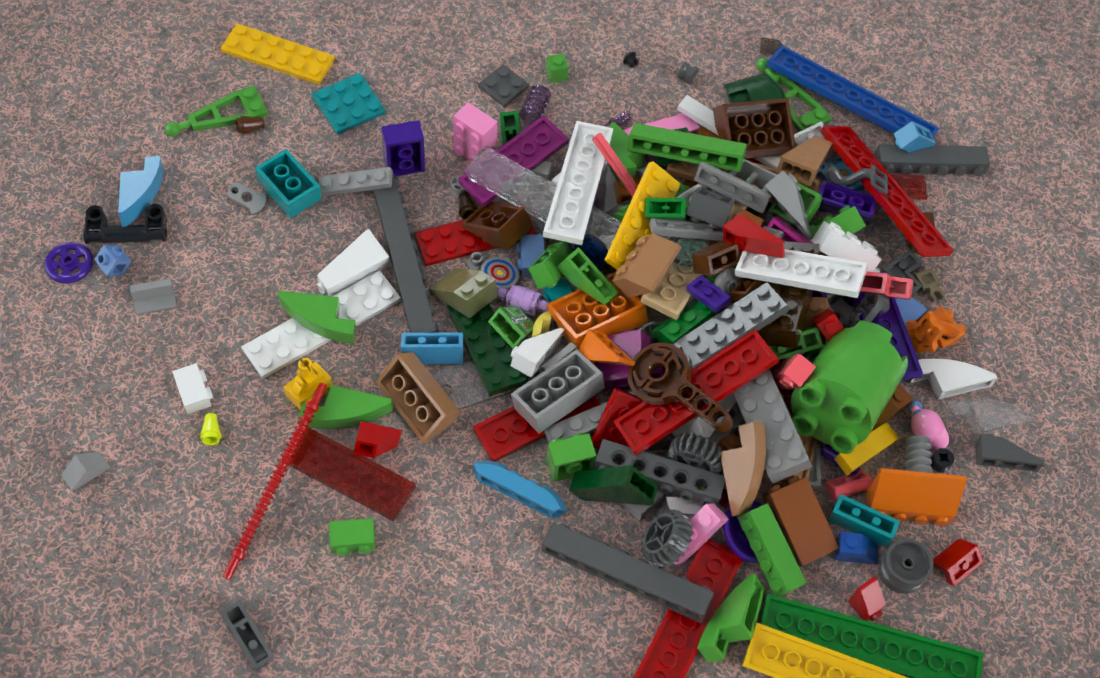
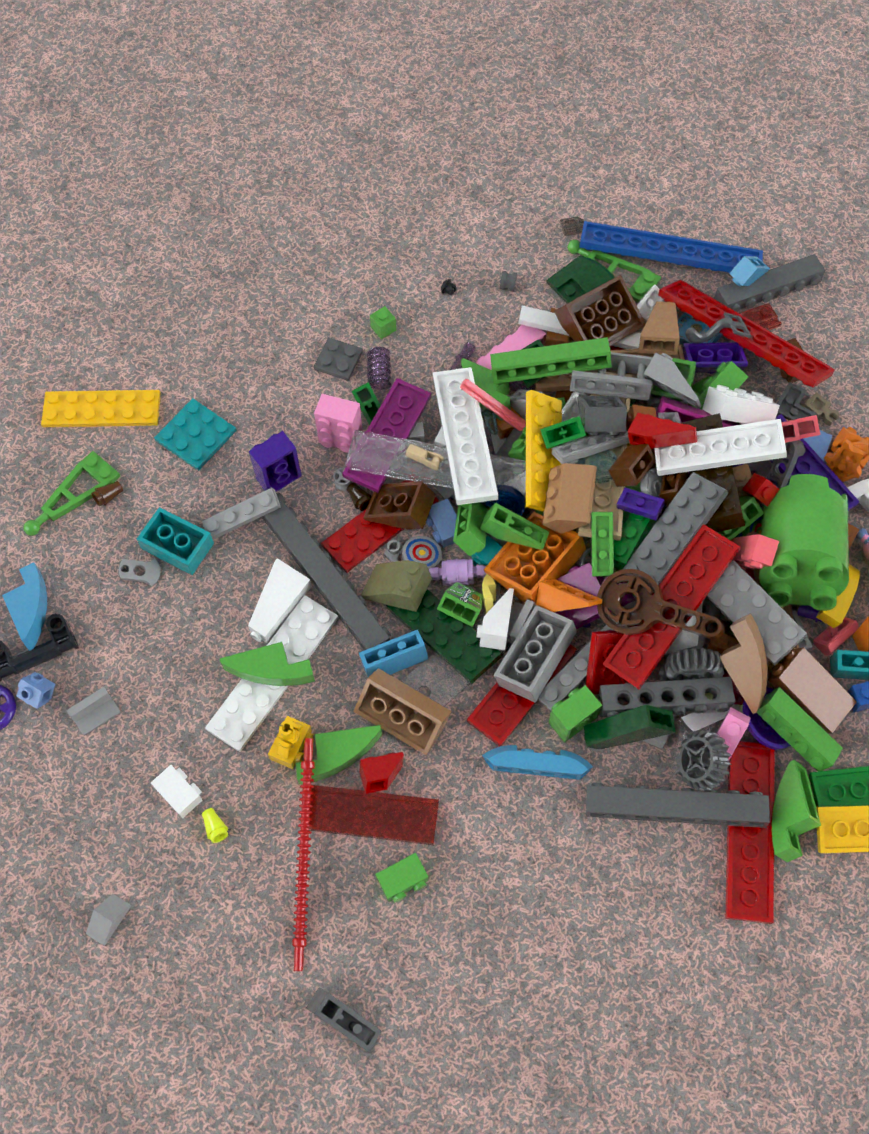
camera: 15 degrees left, 5 degrees up
(534, 186) = (422, 455): none -> tan bar
(612, 183) = (490, 421): none -> clear light blue piece
(657, 315) = (602, 543): none -> bright green tile

